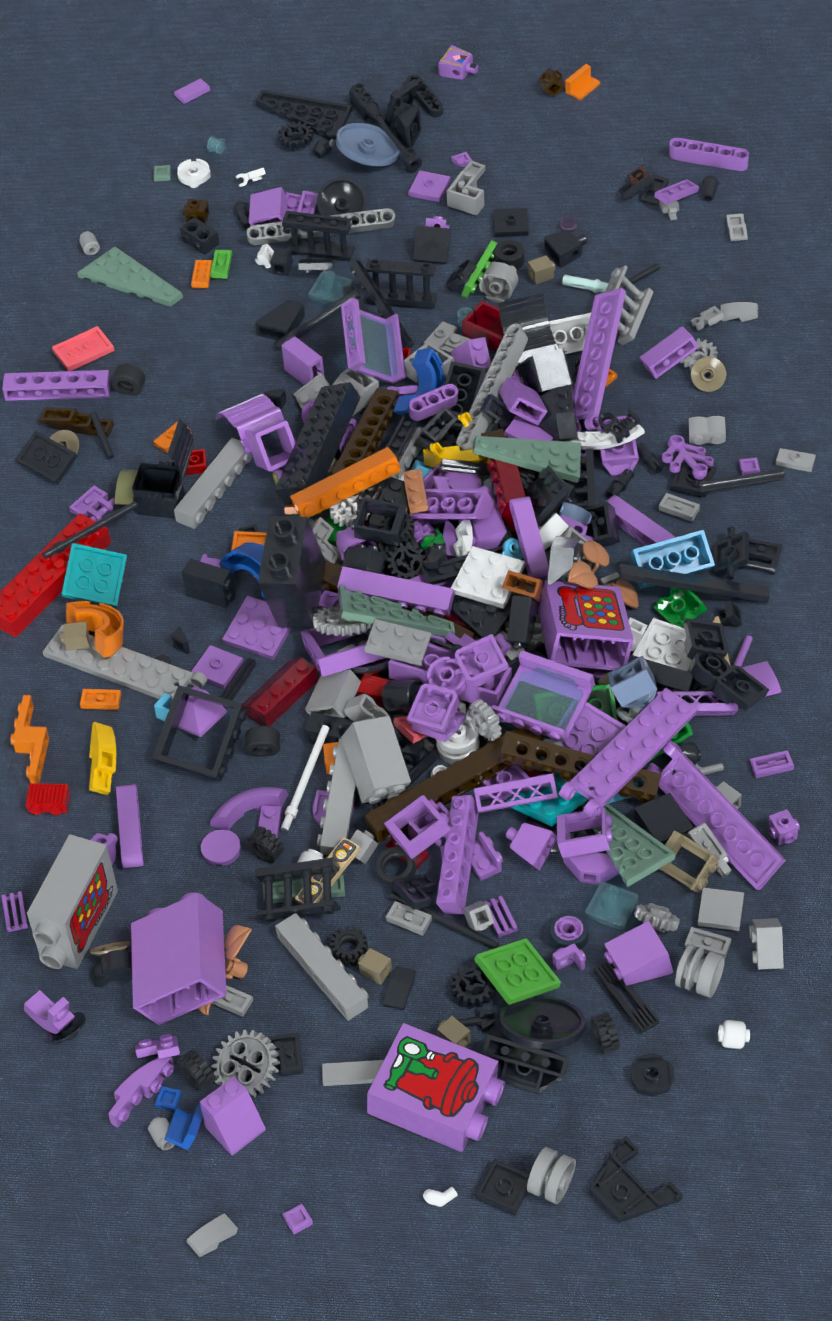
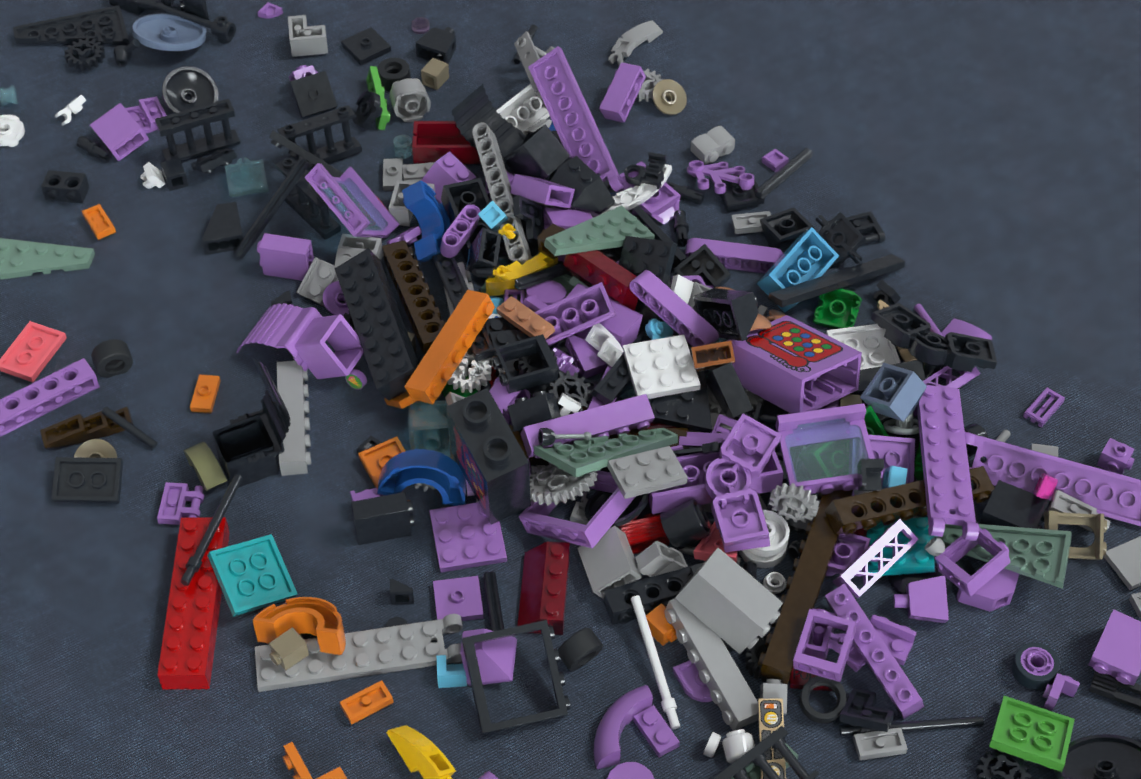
camera: 40 degrees left, 0 degrees up
(197, 209) = (41, 162): dark brown brick -> none
(197, 462) = (249, 402): red piece -> none
(221, 264) = (111, 203): bright green plate -> none
(265, 844) = (681, 754): black tyre -> none
(294, 852) = (712, 745): none -> white tile
(352, 582) = (547, 436): none -> hinge
(361, 217) = (152, 150): light grey beam -> none
(392, 568) = (568, 405): none -> white tile
(429, 186) = (259, 46): medium lavender plate -> none
(434, 550) = (588, 365): black animal -> none
(461, 402) = (493, 215): none -> medium azure panel
(475, 168) = (289, 11): light grey plate -> none
(478, 916) = (945, 700): light grey brick -> none
(494, 903) = (958, 686): medium lavender tile -> none
(548, 727) = (870, 474): none -> black panel
(561, 807) = (935, 546): none -> light grey hinge
(574, 353) = (536, 126): none -> light grey slope
(575, 512) = (687, 268): sand blue helmet -> none
(584, 744) = (894, 476): none -> medium azure slope
(594, 285) = (488, 68): light aqua pin -> none
(611, 905) = (1044, 617): clear light blue plate -> none
(658, 916) = (1100, 603): light grey gear -> none
(694, 813) = (1045, 486): none -> dark pink slope
(697, 519) = (784, 226): none -> black slope
(795, 460) = (807, 135): light grey plate -> none

